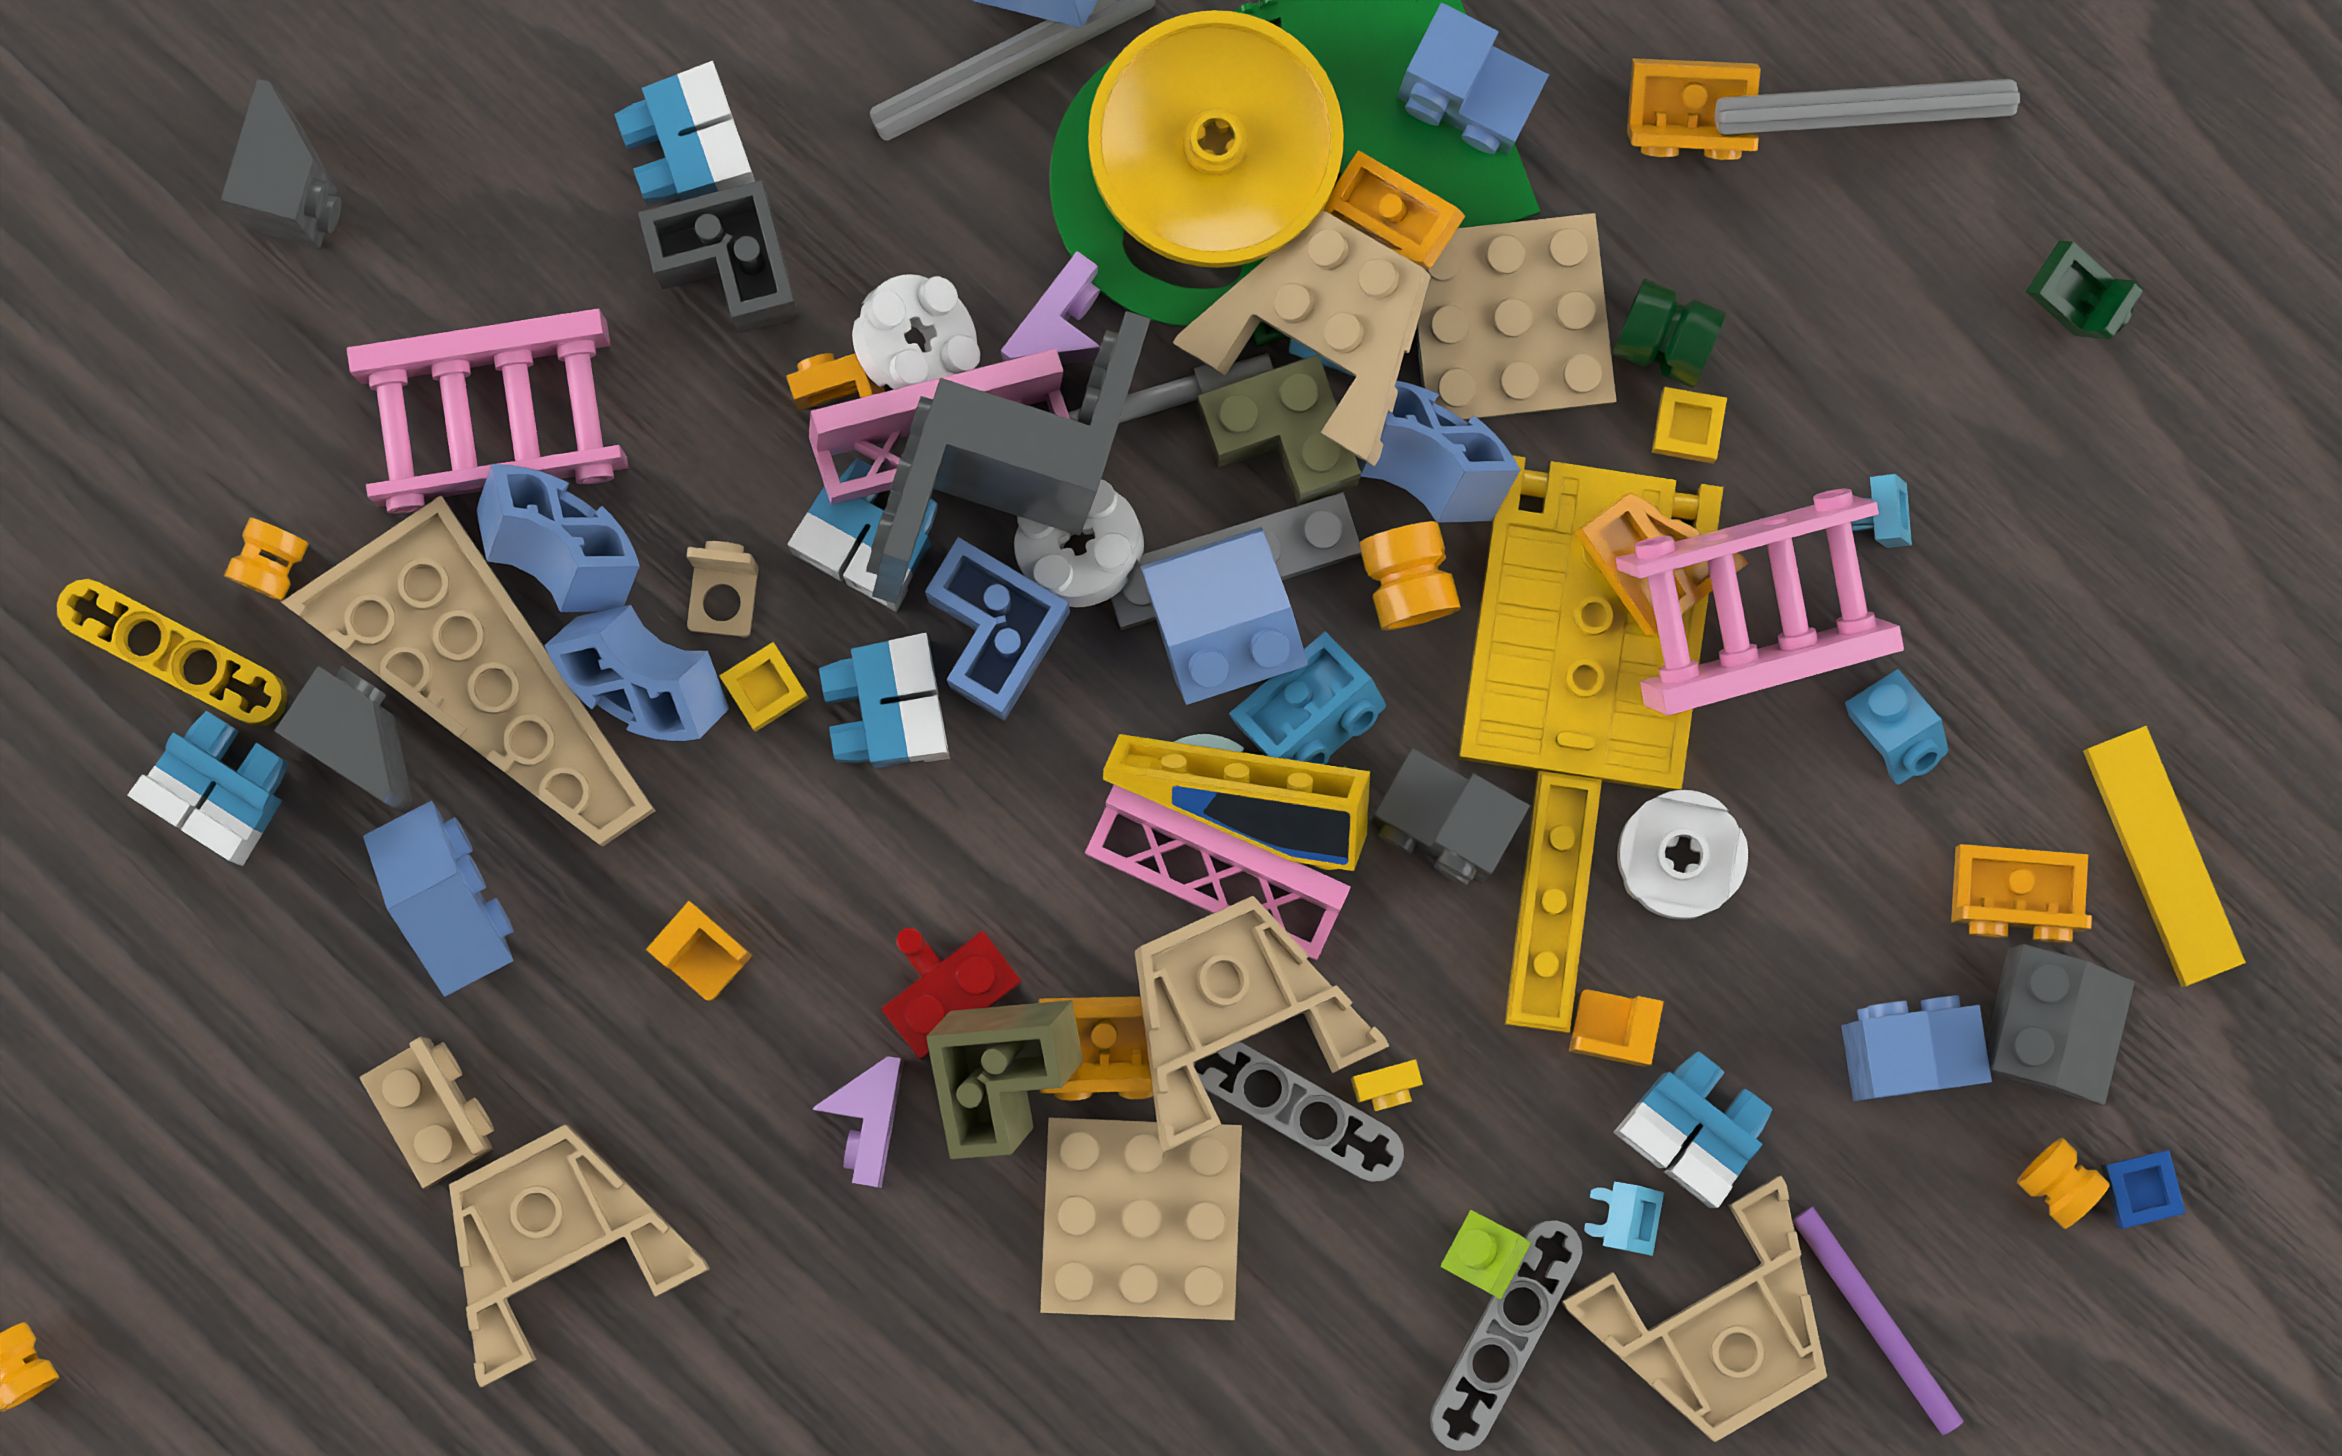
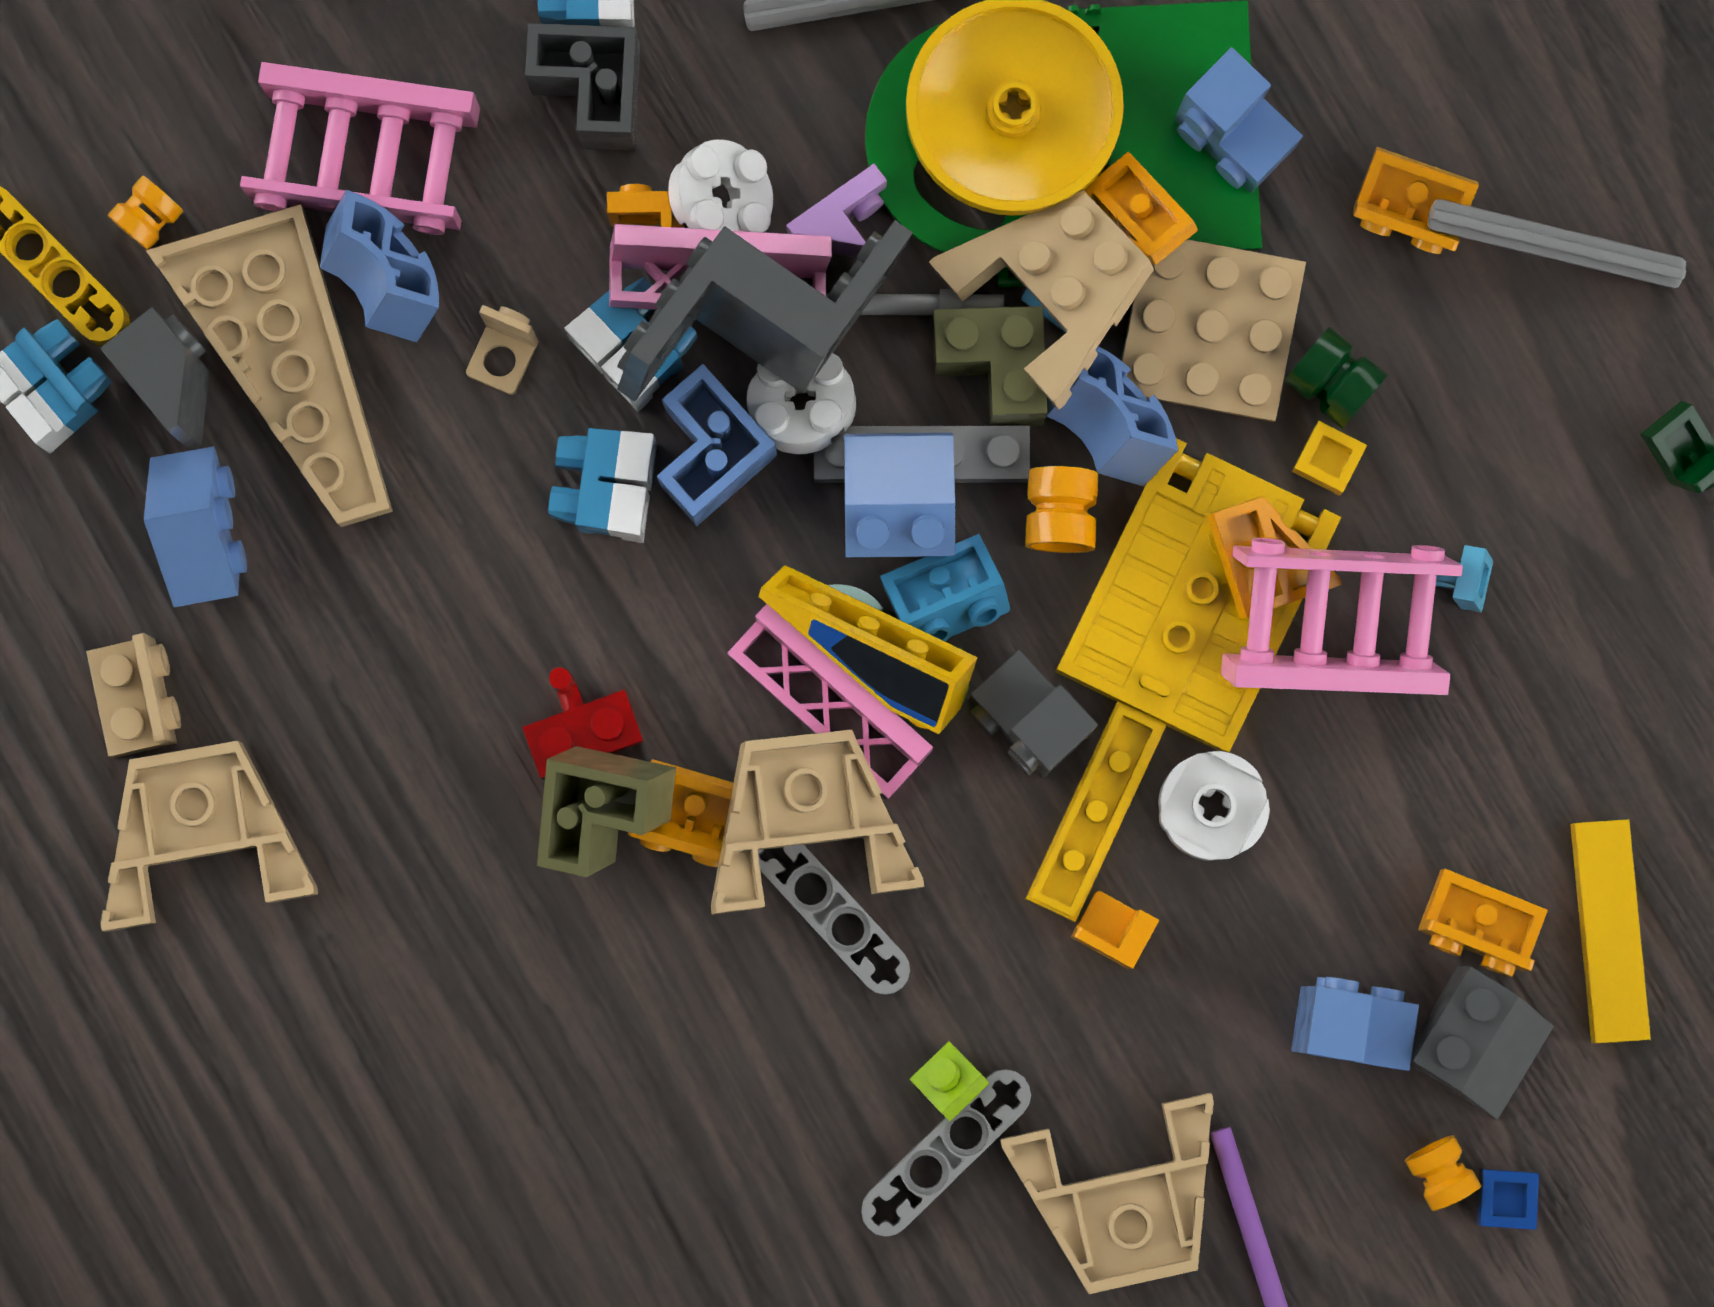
camera: 20 degrees right, 0 degrees up
(637, 677) = (410, 397): medium blue brick -> none
(699, 951) = (390, 635): light orange panel -> none
(764, 686) = (511, 438): yellow plate -> none
(874, 1100) = (493, 799): lavender slope -> none
(1140, 1224) = (675, 968): tan plate -> none
(1387, 1085) = (912, 918): yellow plate -> none
(1631, 1217) = (1077, 1089): medium azure tile -> none
(1718, 1146) = (1170, 1051): hips -> none
(1899, 726) = (1425, 757): dark azure bracket -> none

